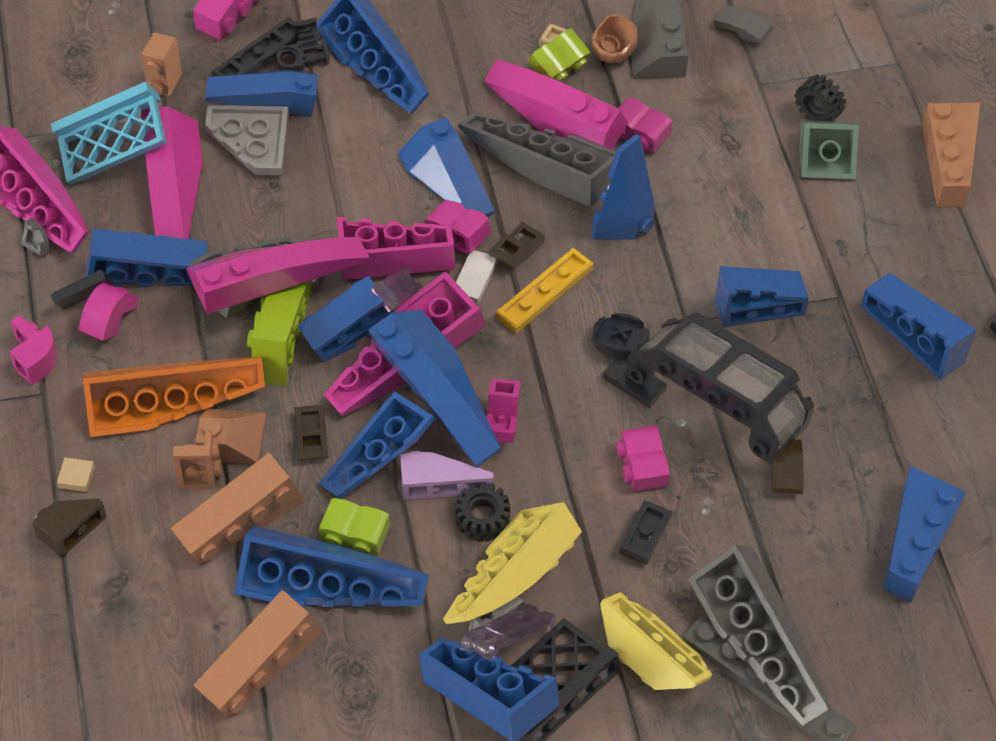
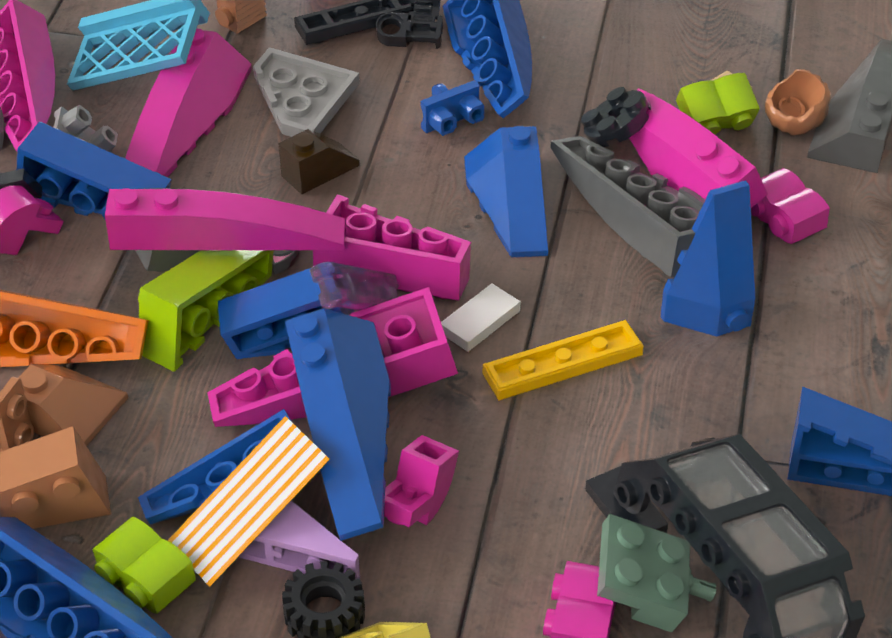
camera: 25 degrees right, 10 degrees down
(113, 220) = (77, 123): none -> light grey hips
(271, 88) = (367, 52): blue wedge -> none
(294, 191) = (313, 160): none -> dark brown slope
(311, 432) = (167, 434): dark brown slope -> none
(366, 115) = (449, 106): none -> blue hips
(408, 461) = (248, 500): none -> sticker
(467, 225) = (493, 251): dark pink brick -> none
(483, 94) = (616, 117): none -> black plate
(518, 245) = (554, 298): dark brown slope -> none
(619, 335) = (630, 439): black tile -> none
(673, 421) = (648, 573): none -> sand green plate

